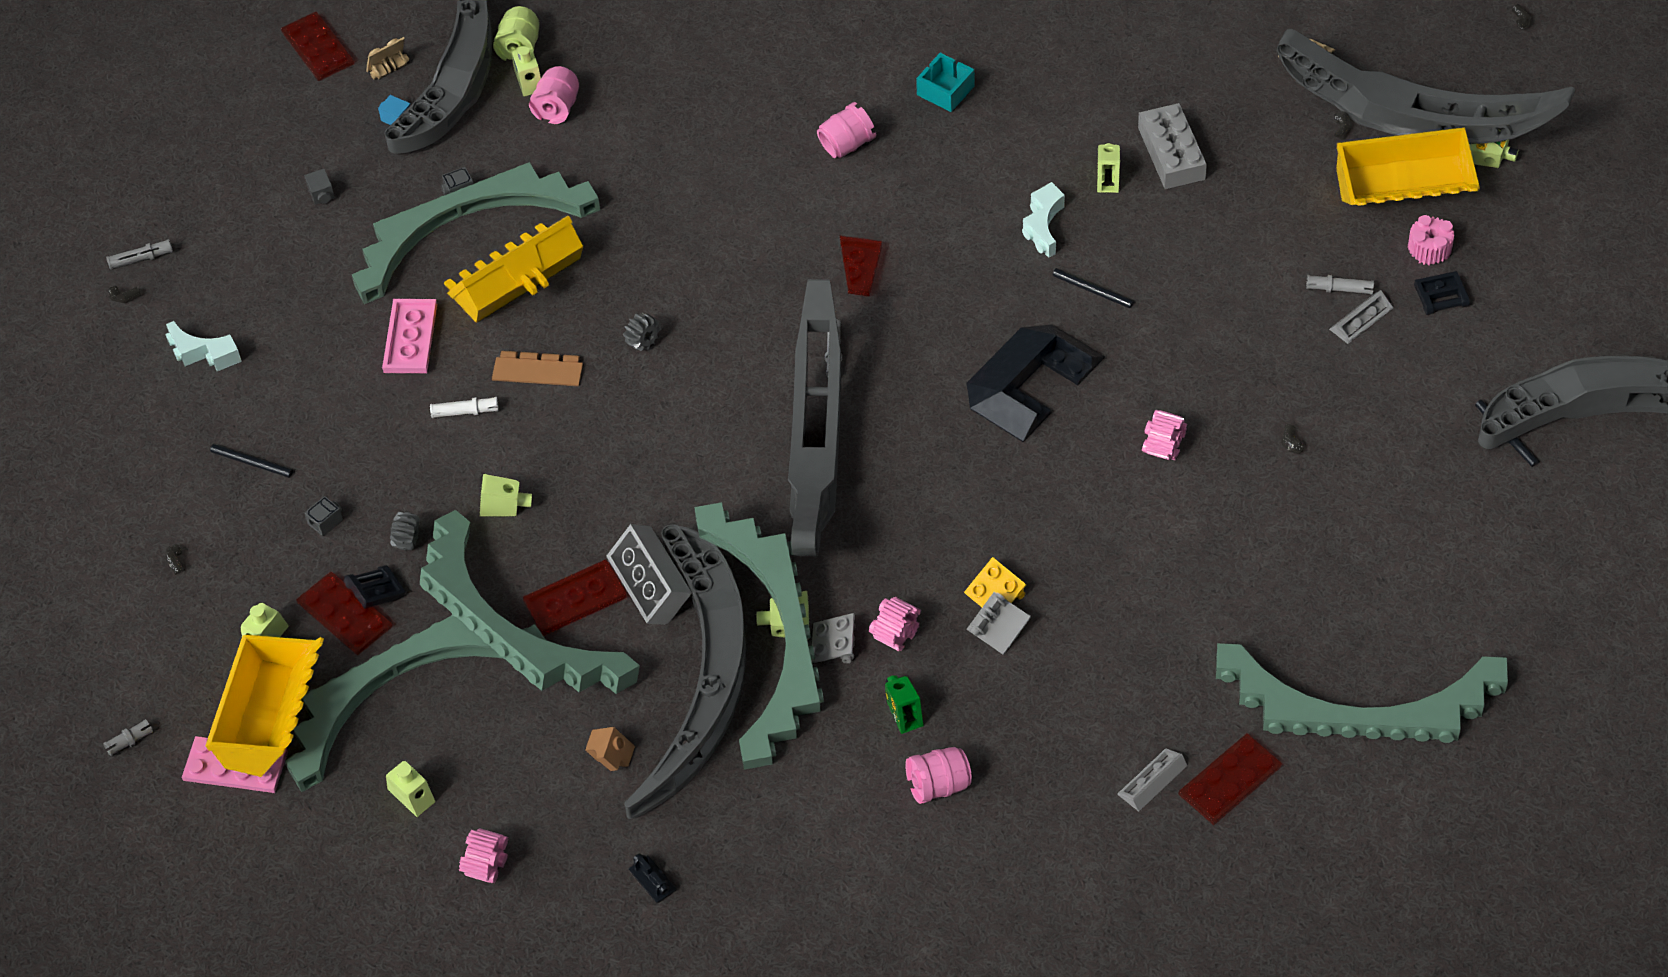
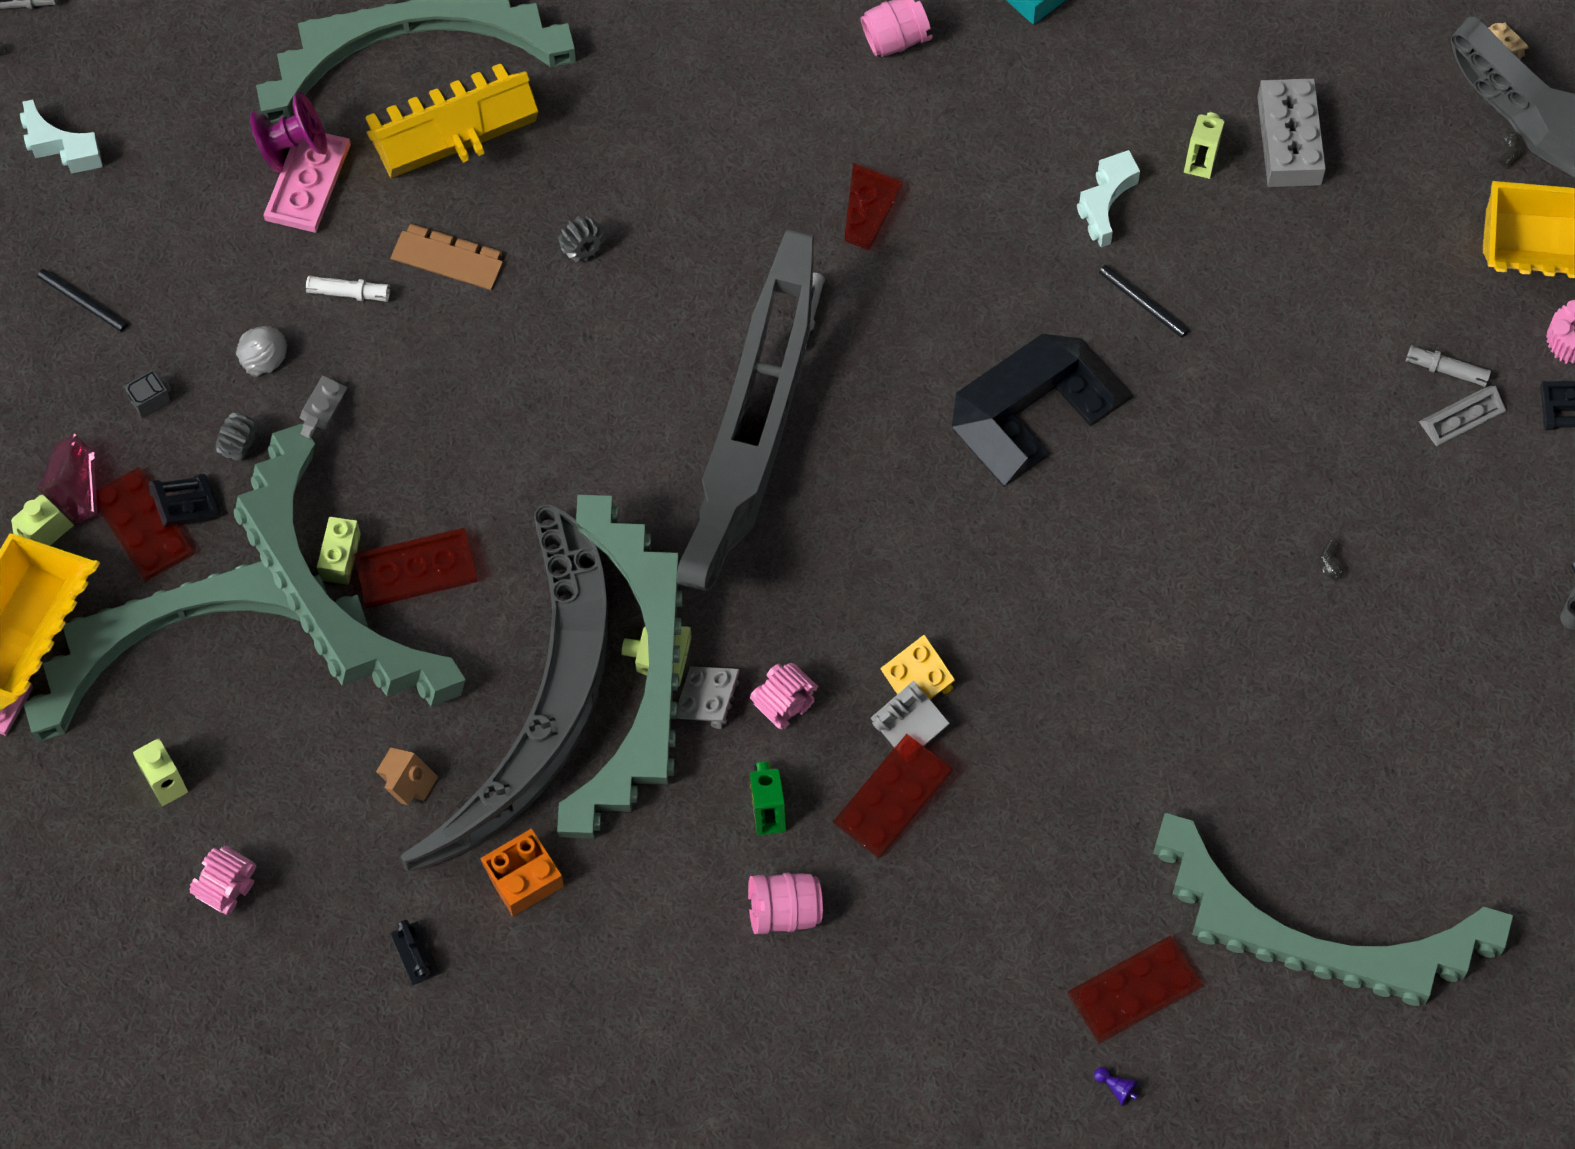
camera: 10 degrees right, 10 degrees up
(279, 589) = (71, 479): none -> clear pink slope
(388, 301) = (288, 132): none -> magenta piece
(407, 465) = (261, 350): none -> light grey hair
(467, 494) = (321, 405): none -> light grey hinge
(501, 496) = (361, 418): yellowish green torso -> none
(510, 595) = (338, 550): none -> yellowish green brick
(648, 574) = (507, 562): light grey brick -> none
(723, 798) = (522, 872): none -> orange slope
(1000, 680) = (892, 796): none -> clear red plate
(1154, 782) = (1044, 970): light grey slope -> none
(1164, 435) = (1175, 521): bright pink brick -> none
(1240, 851) = (1120, 1087): none -> dark purple piece

